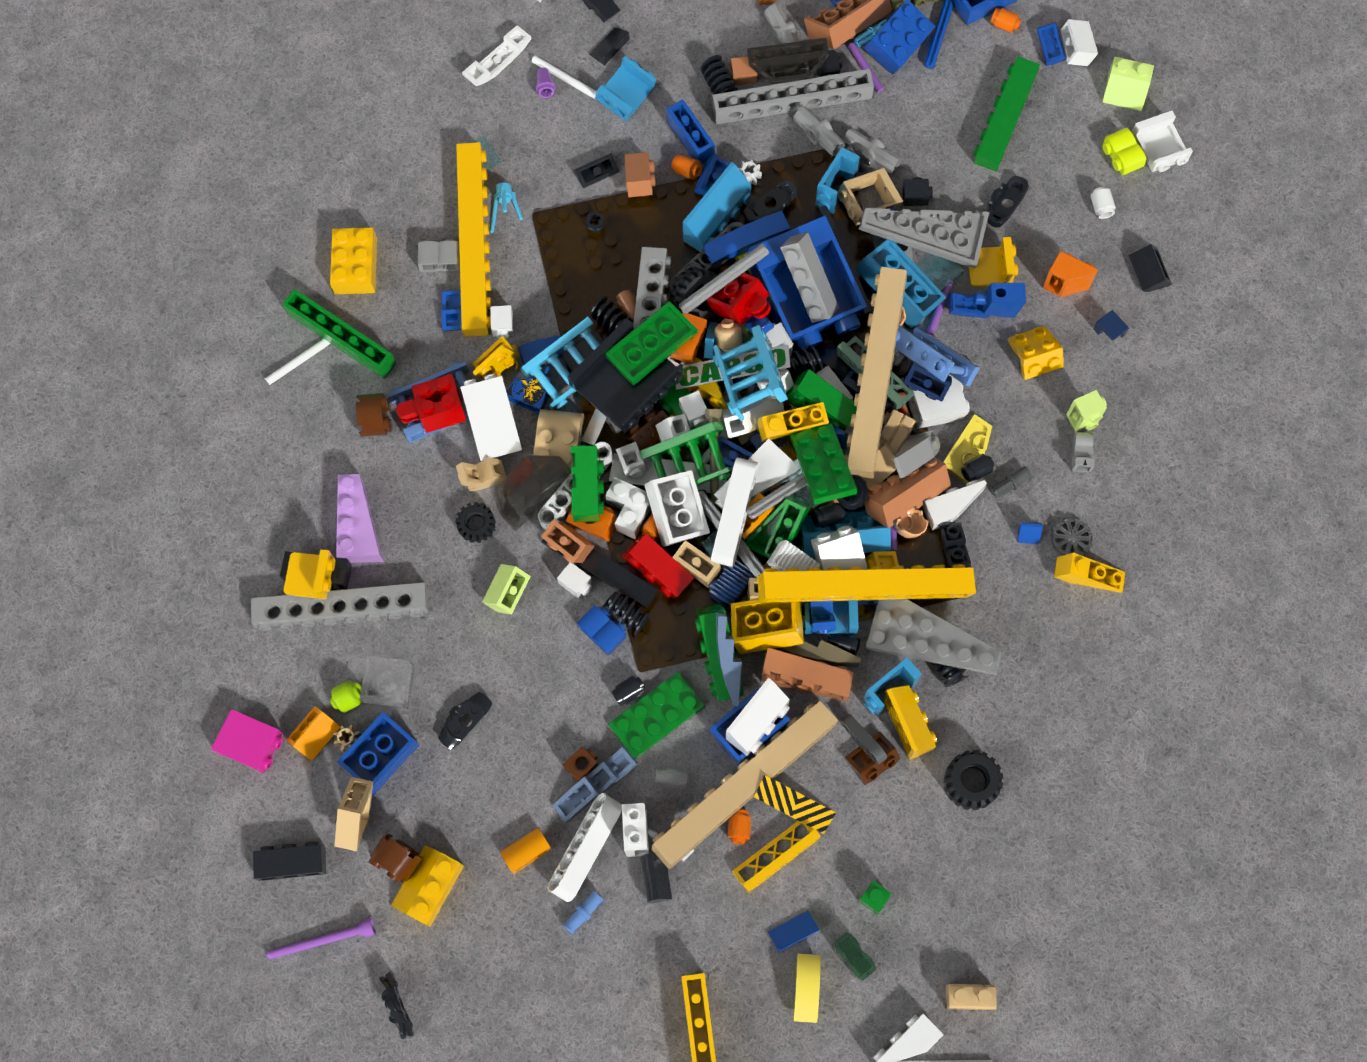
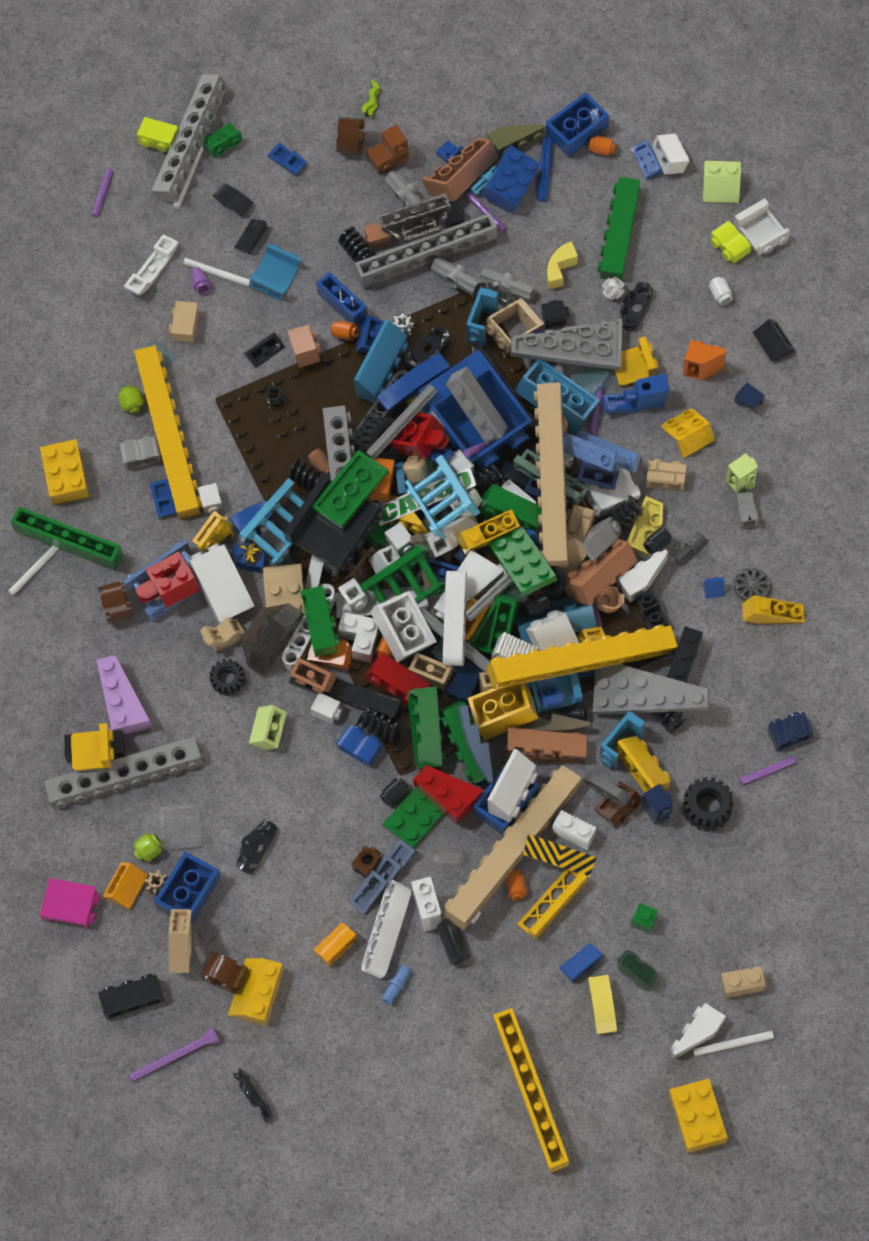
camera: 10 degrees left, 5 degrees down
(442, 196) = (130, 399): none -> lime head
(504, 196) = (186, 388): medium azure plant -> none
(518, 123) = (184, 322): none -> tan brick
(677, 627) = (425, 727): none -> green wedge
(685, 706) = (447, 792): none -> red wedge
(799, 325) = (475, 449): none -> medium lavender bar
(817, 777) = (574, 830): none -> white brick
(917, 769) = (657, 804): none -> dark blue brick
(938, 133) = (562, 258): none -> light yellow brick
(951, 430) = (628, 513): none -> black piece
(981, 604) = (685, 654): none -> black brick
(986, 177) = (613, 288): none -> white gear
(1002, 395) = (666, 475): none -> tan brick
(1046, 754) = (767, 770): none -> medium lavender bar
(1081, 714) = (790, 730): none -> dark blue brick

